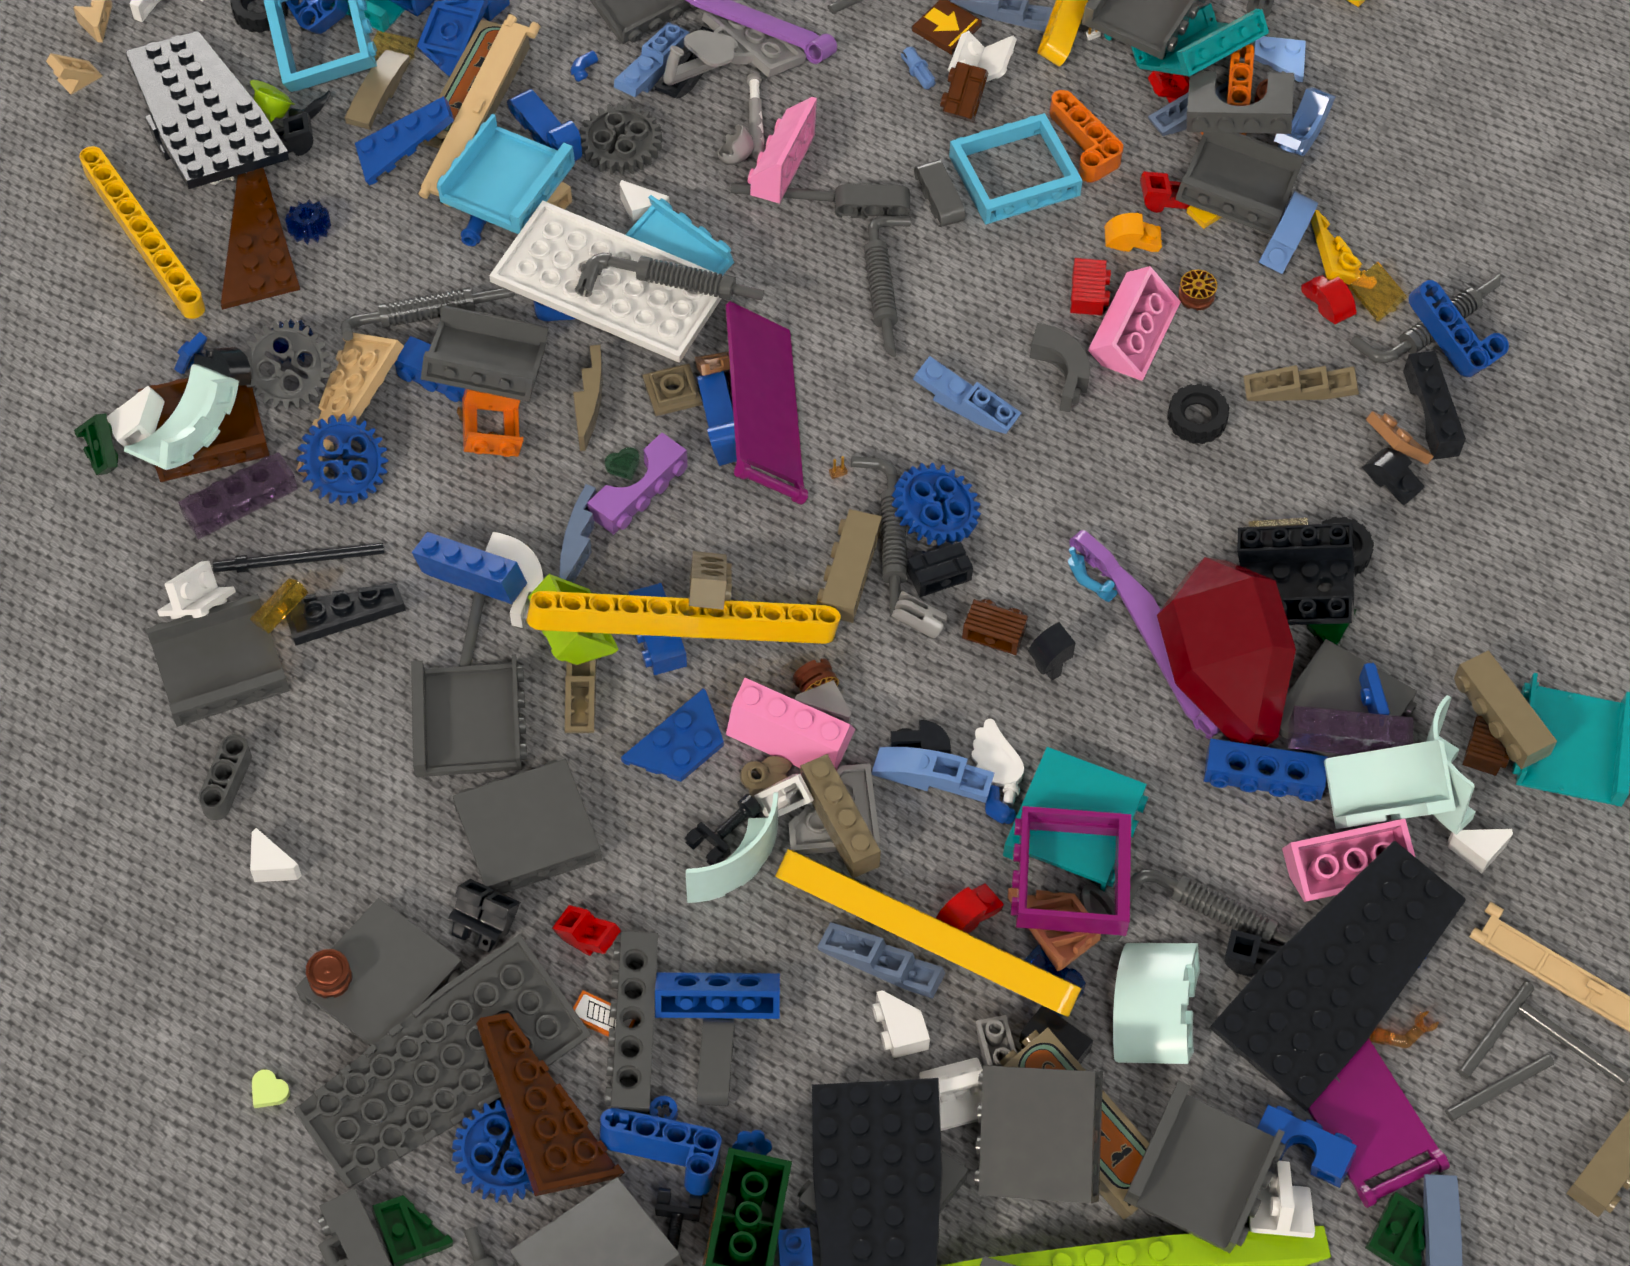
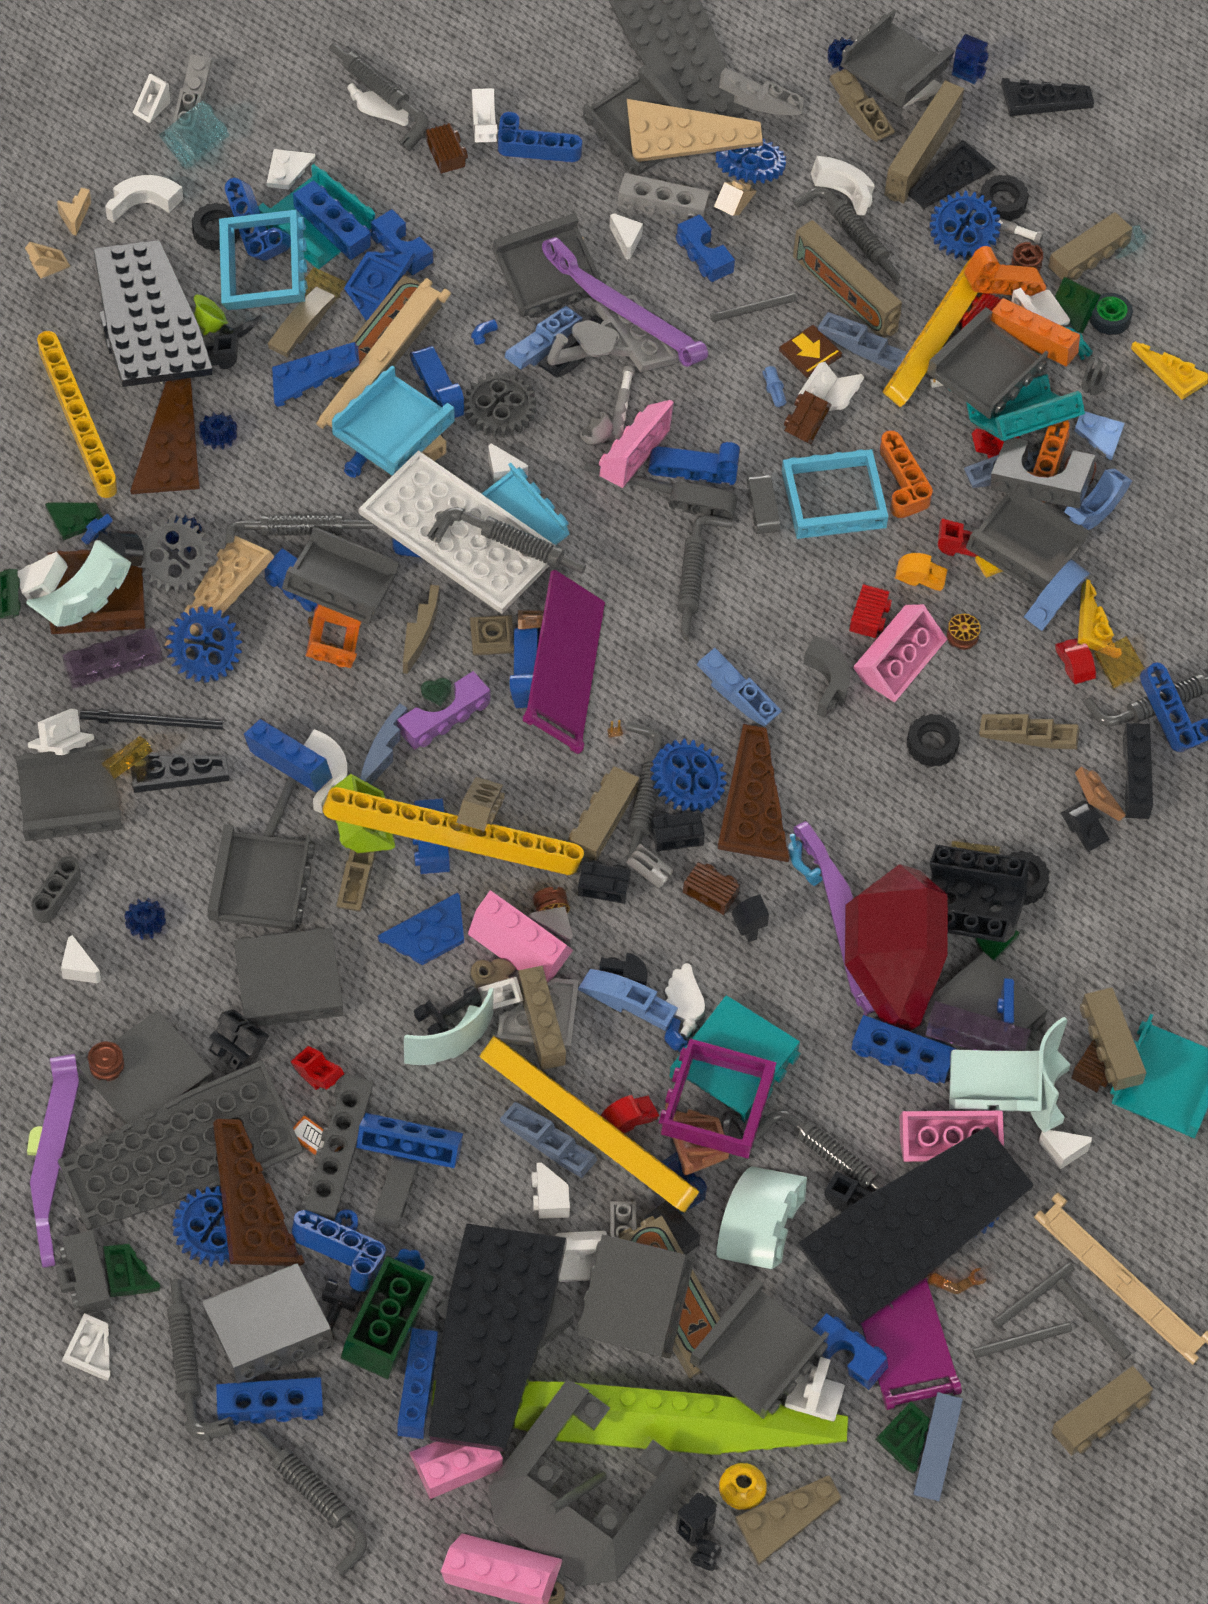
camera: 10 degrees right, 0 degrees up
(158, 347) = (72, 517): none -> dark green wing
(282, 1096) = (52, 1147): none -> medium lavender piece
(329, 795) = (136, 922): none -> clear blue gear
(856, 164) = (696, 464): none -> blue beam
(870, 643) = (604, 881): none -> black brick
(1017, 528) = (753, 809): none -> reddish brown wing

